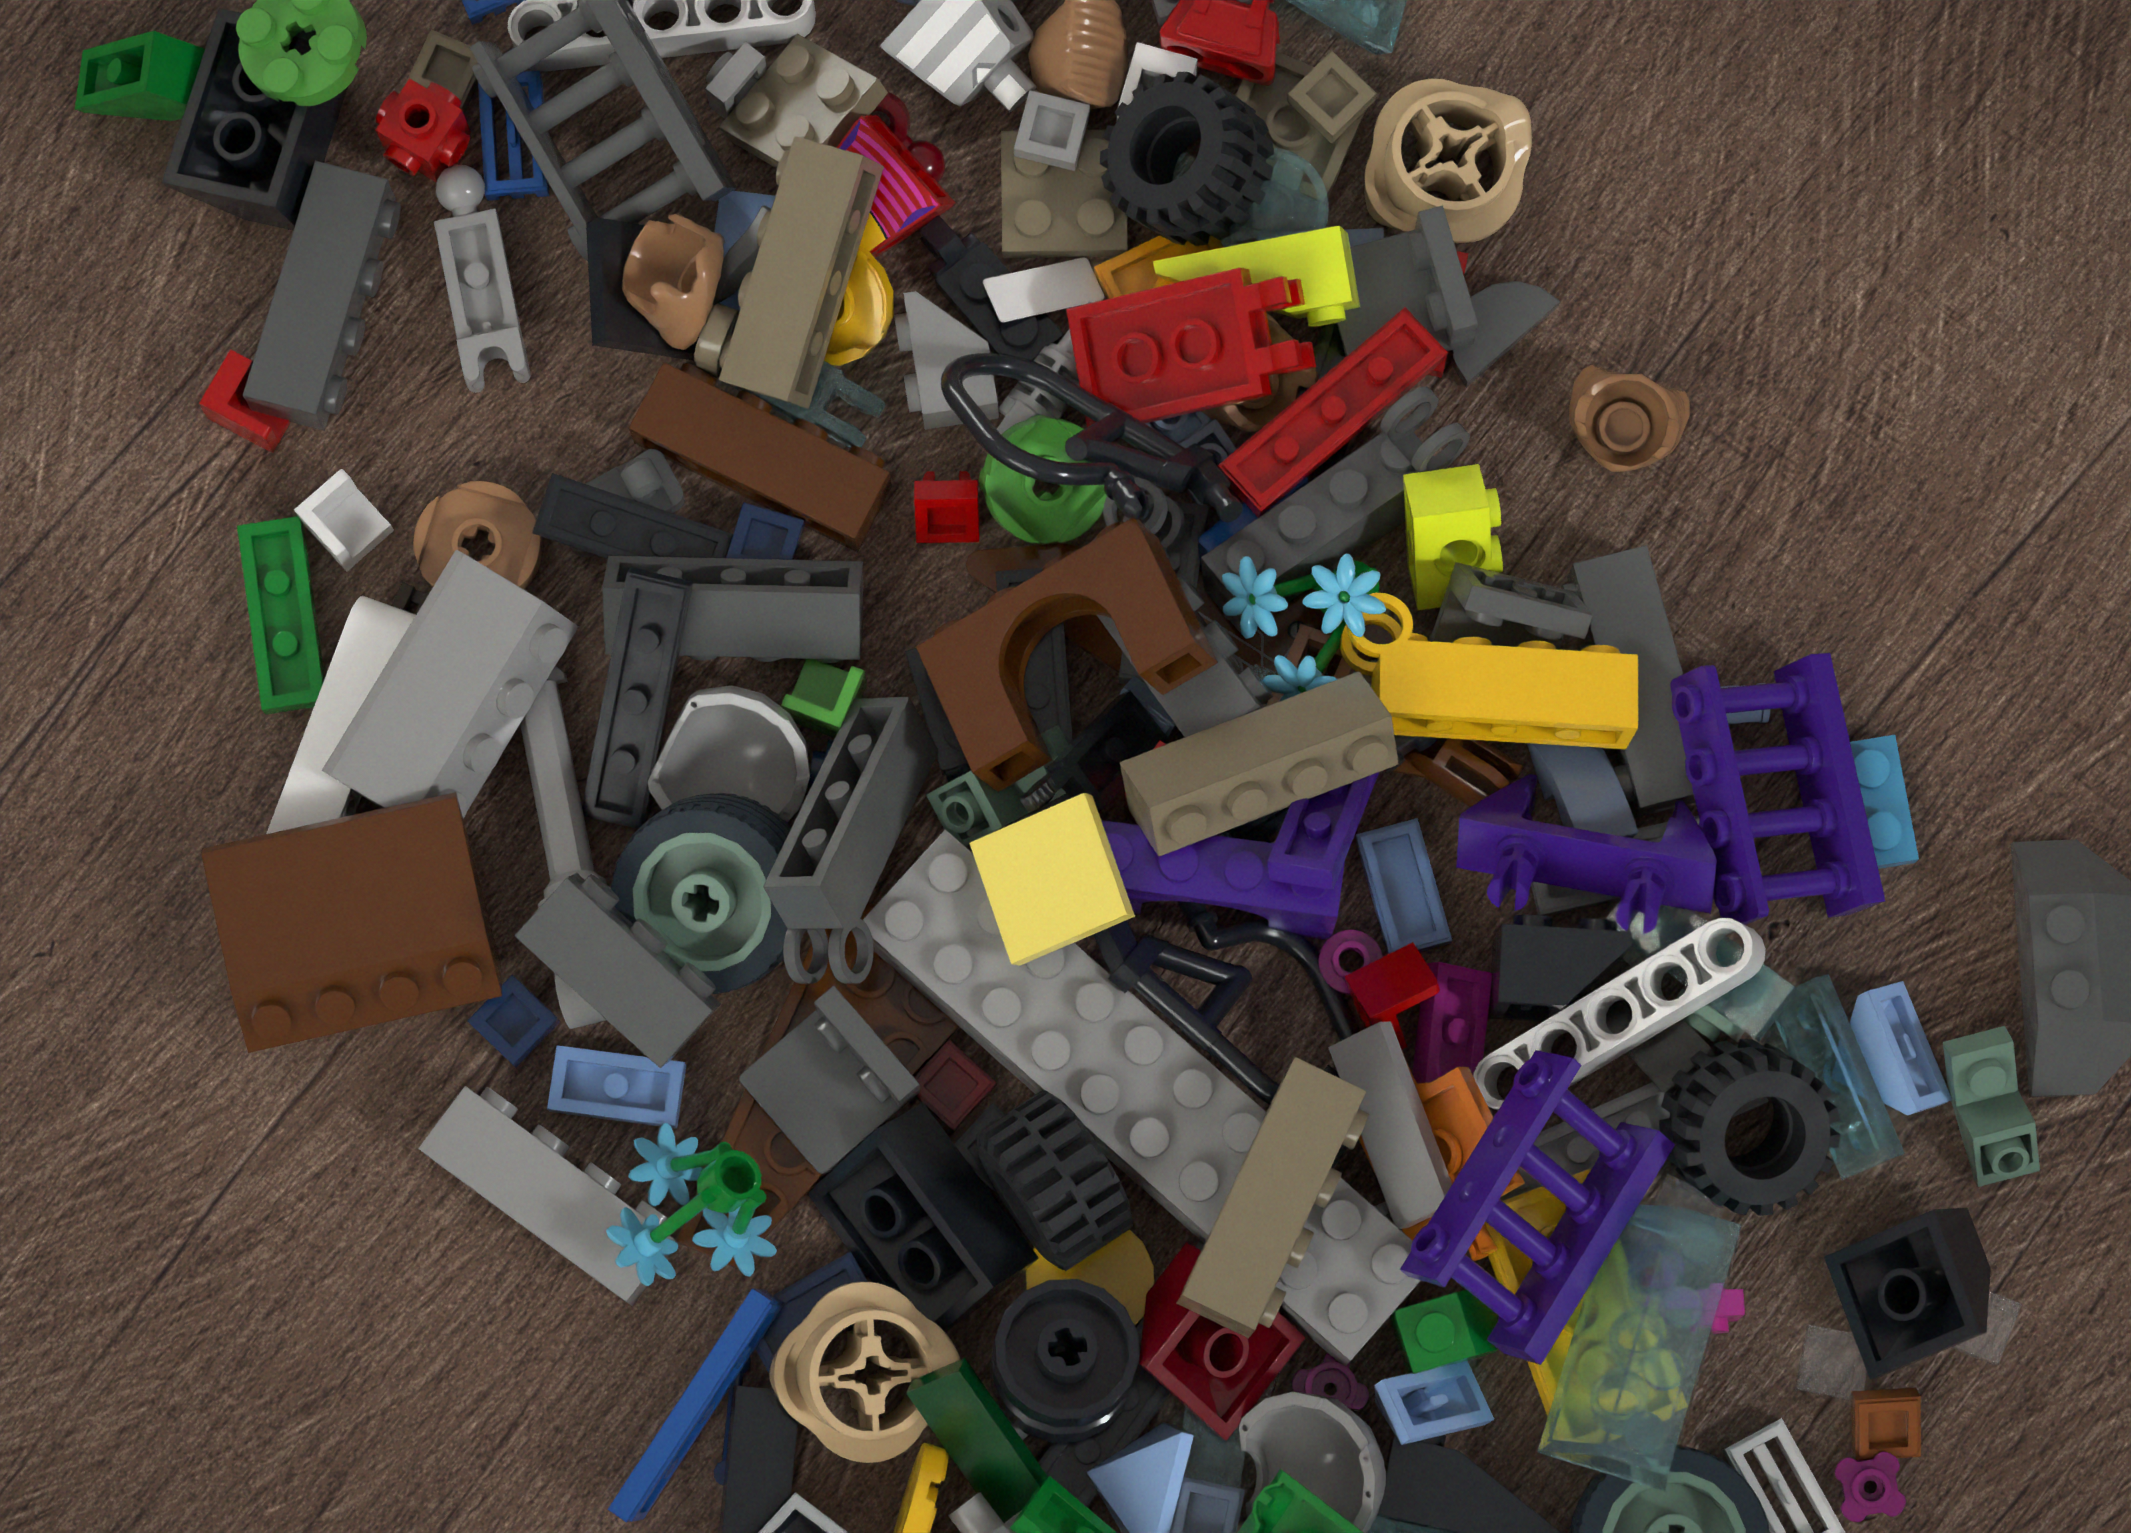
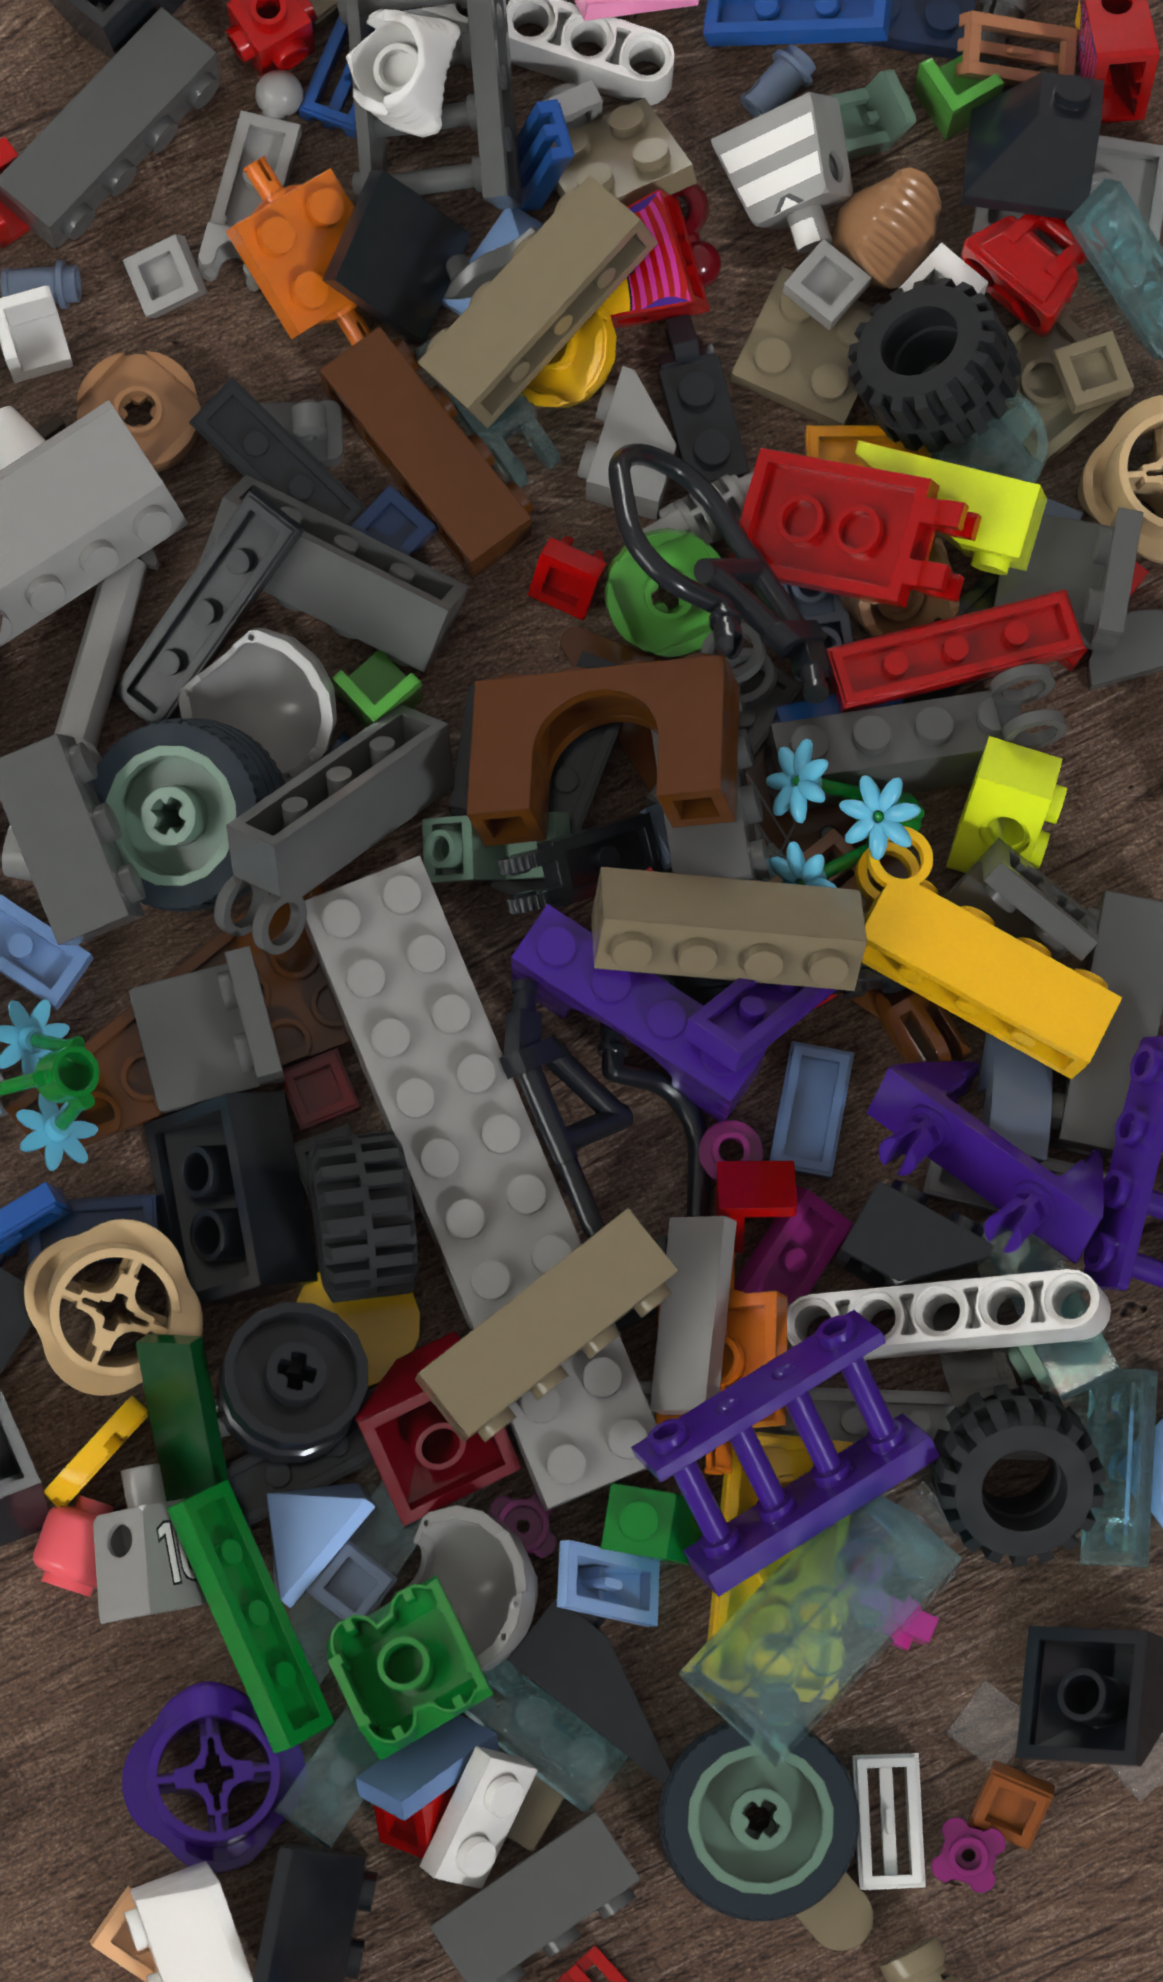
camera: 20 degrees right, 0 degrees up
(316, 471) = (62, 279): none -> sand blue pin
(440, 407) = (165, 276): none -> light grey plate
(546, 326) = (291, 246): none -> orange plate
(573, 116) = (404, 69): none -> white hair
(674, 277) = (424, 254): medium nougat hair -> none
(712, 337) = (432, 322): dark tan tile -> none
(725, 124) = (538, 162): none -> blue tile
(1043, 289) = (749, 423): white sticker -> none
(1051, 879) = (489, 943): light yellow tile -> none

